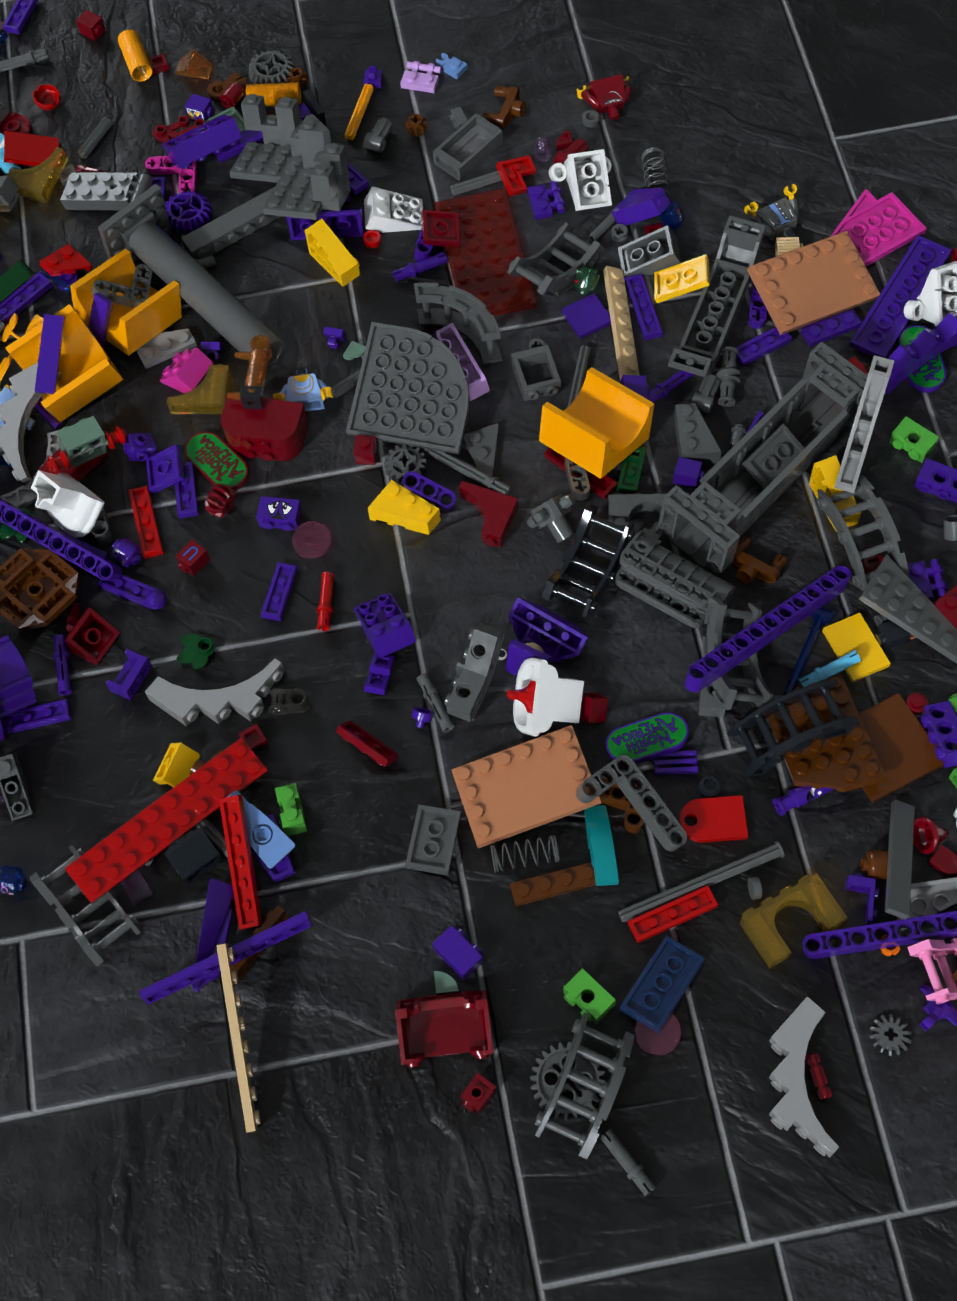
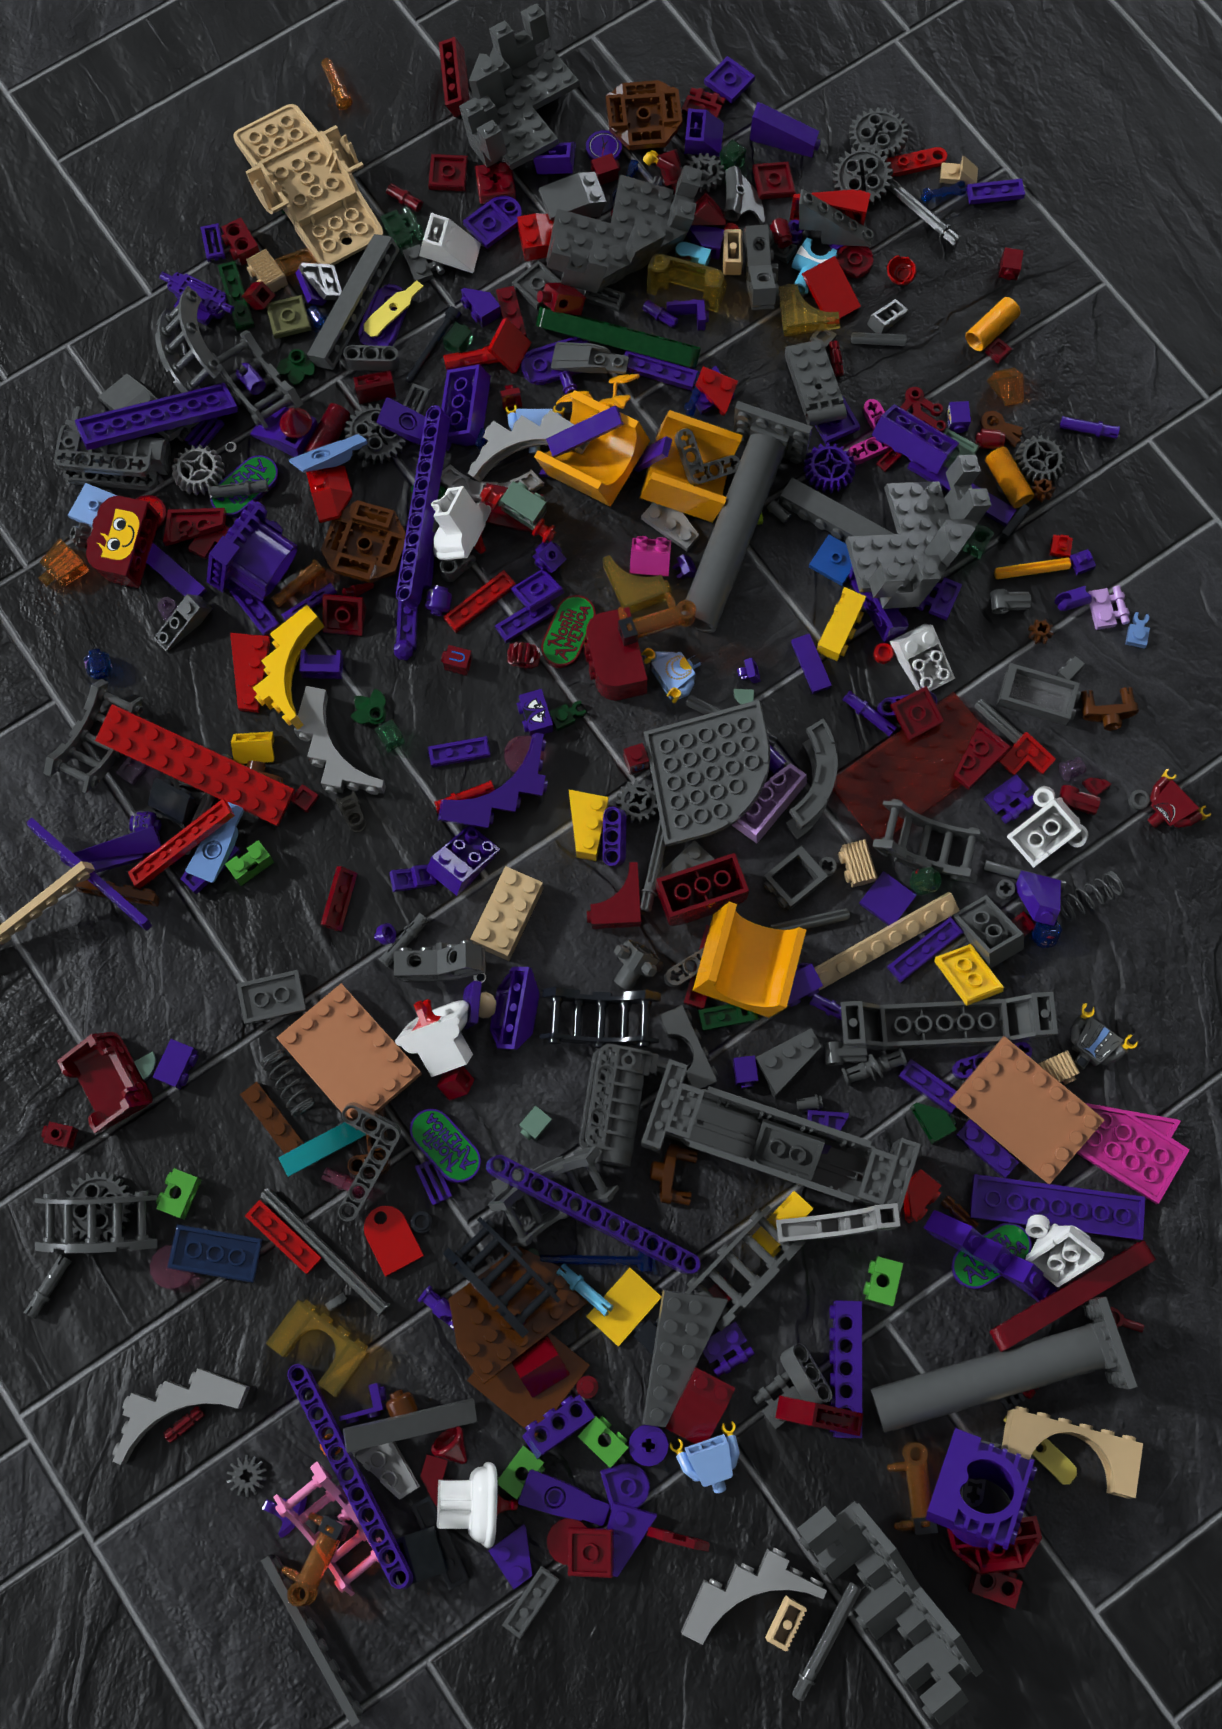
camera: 60 degrees right, 10 degrees up
(34, 658) = (304, 578): none -> clear orange pin
(79, 127) = (877, 322): none -> dark grey slope
(95, 742) = (248, 668): none -> red wing
(132, 720) = (281, 663): none -> yellow arch
(197, 894) = (144, 820): none -> dark purple head
(205, 171) = (888, 460): none -> dark red piece
(233, 640) = (389, 735): none -> clear green brick
(267, 25) = (1098, 429): none -> dark purple pin
(270, 241) = (832, 560): none -> blue plate
(294, 490) = (564, 716): none -> dark green plate
(345, 563) = (526, 780): none -> dark purple arch
(351, 86) = (1061, 546): none -> red tile
(352, 292) = (811, 663): none -> dark purple tile
(401, 94) = (1073, 599): none -> dark purple piece
(453, 602) = (507, 913): none -> tan brick
(500, 201) = (981, 755): none -> dark red wing
(515, 435) = (701, 889): none -> dark red brick
(546, 323) = (857, 863): none -> tan brick
(639, 843) = (342, 1181): none -> clear pink pin
(660, 654) = (535, 1124): none -> sand green brick
(792, 354) = (934, 1121): none -> dark green slope
(886, 730) = (540, 1367): none -> dark red slope

